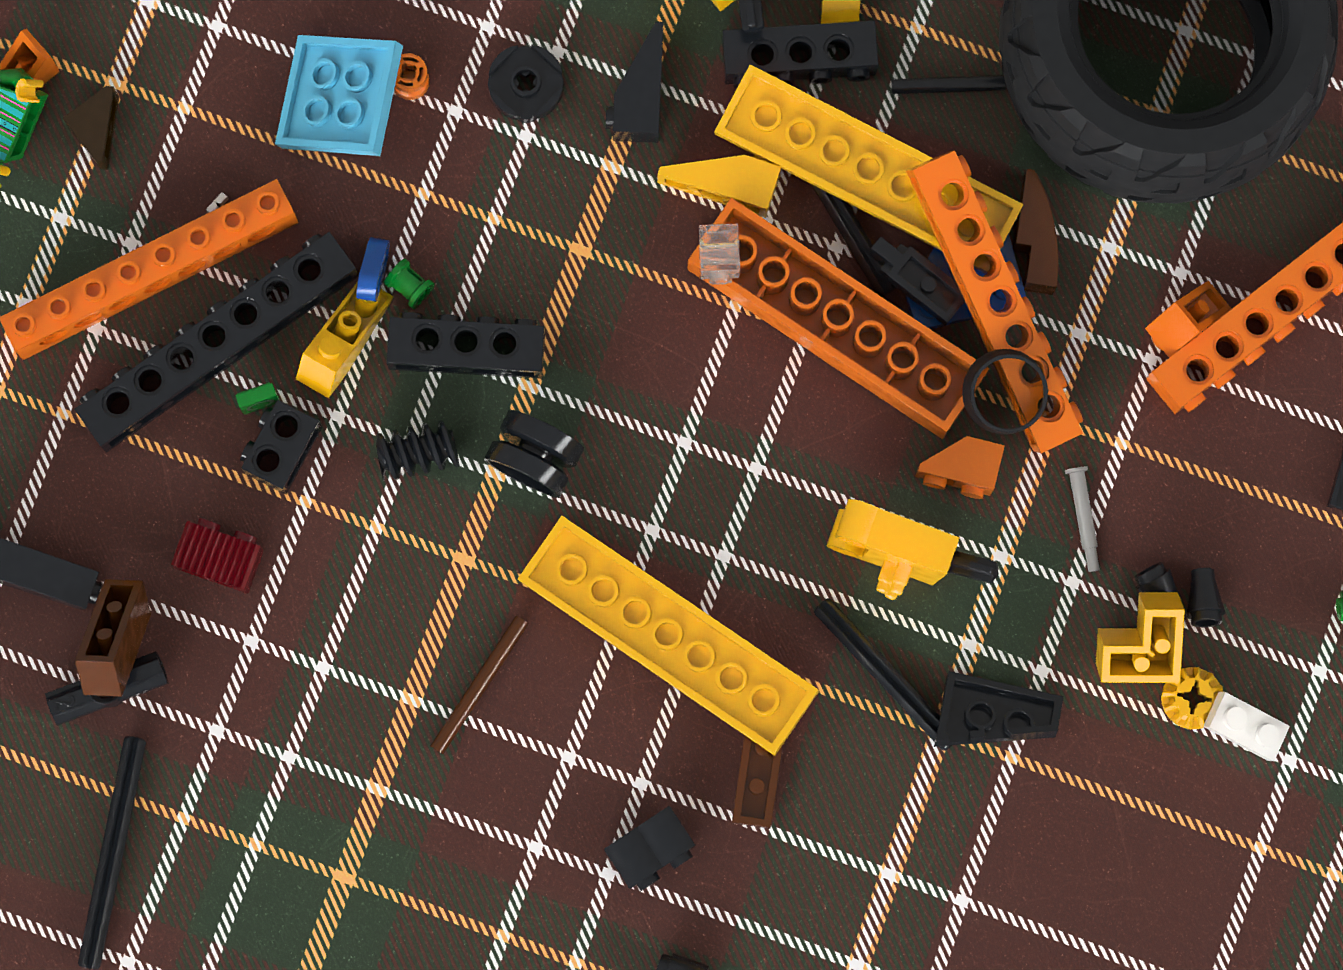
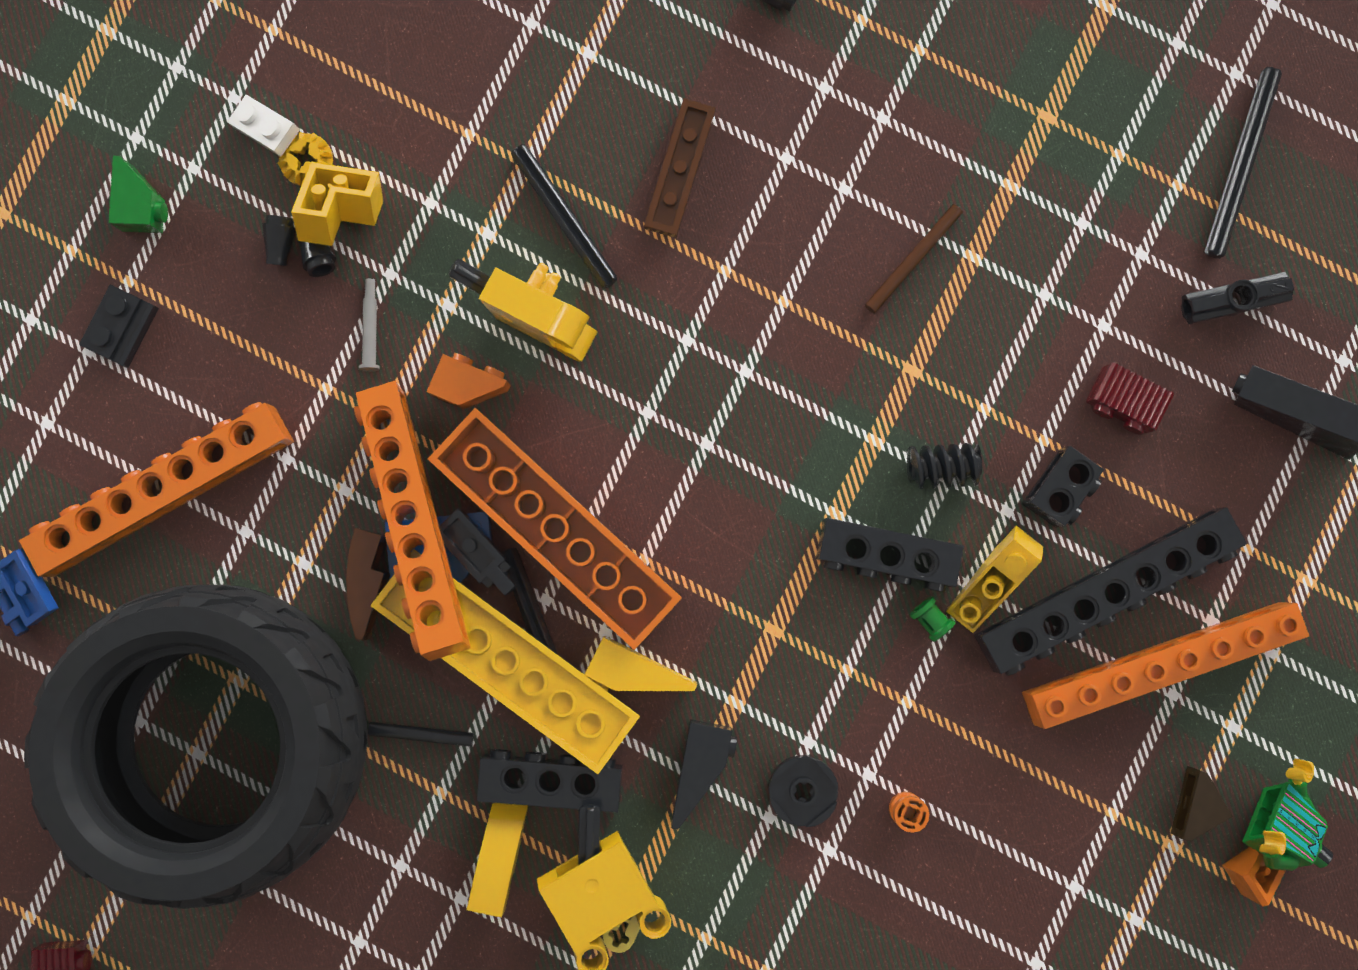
camera: 170 degrees left, 5 degrees up
(113, 637) = (1236, 330): reddish brown brick -> none
(220, 200) = (1089, 722): white piece -> none
(257, 398) = (1079, 534): green tile -> none
(339, 95) = (976, 802): medium azure plate -> none
(373, 269) = (964, 634): blue beam -> none
(534, 453) = (844, 443): black wheel -> none
(650, 848) = (788, 97): black brick -> none
(668, 635) = (747, 270): yellow plate -> none
(719, 253) = (653, 595): clear brick -> none
(971, 379) = (431, 458): black tyre -> none
(994, 711) = (477, 167): black wing -> none
(1187, 318) = (244, 484): orange slope -> none

